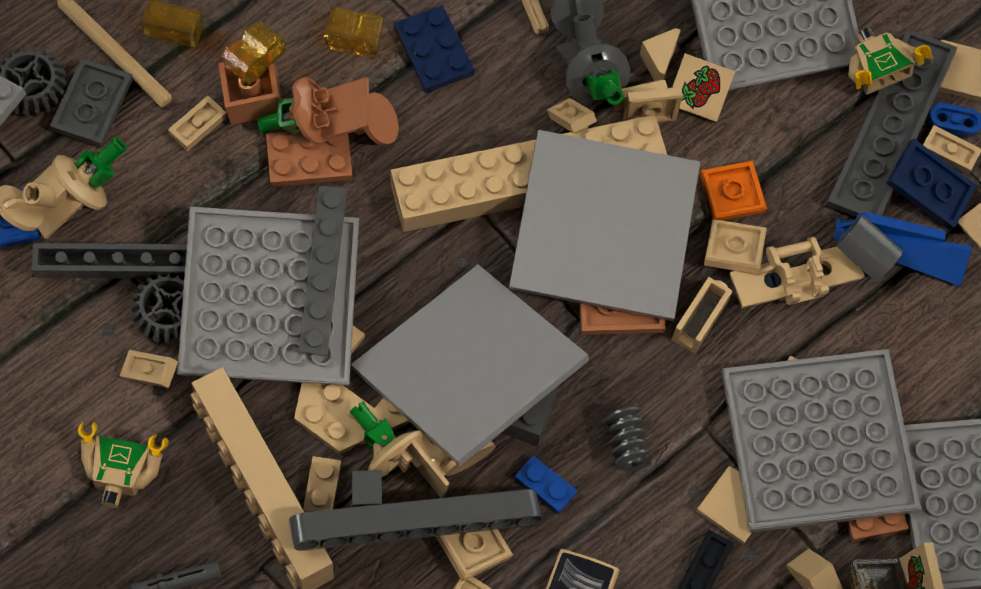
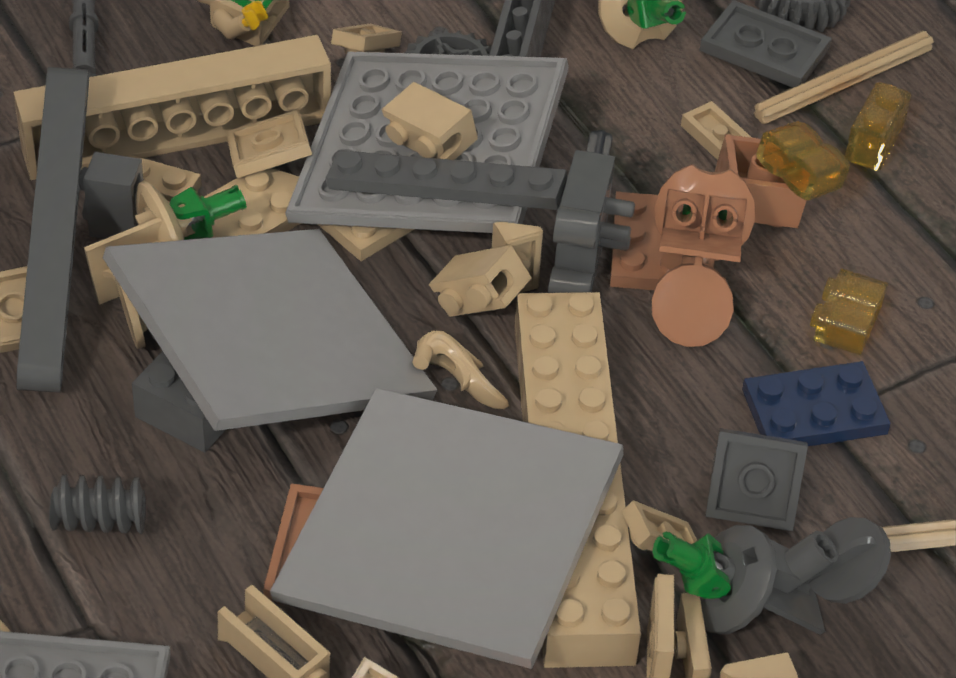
camera: 105 degrees right, 20 degrees down
(276, 287) = (429, 123): none -> tan brick
(279, 411) = (268, 143): none -> tan tile
(357, 175) = (583, 217): none -> dark grey piece
(368, 227) = (526, 243): none -> tan slope
(393, 245) = (471, 284): none -> tan brick
(449, 255) = (445, 351): none -> tan piece
(513, 71) = (756, 479): none -> dark grey bracket
(548, 485) = (70, 409): blue plate -> none

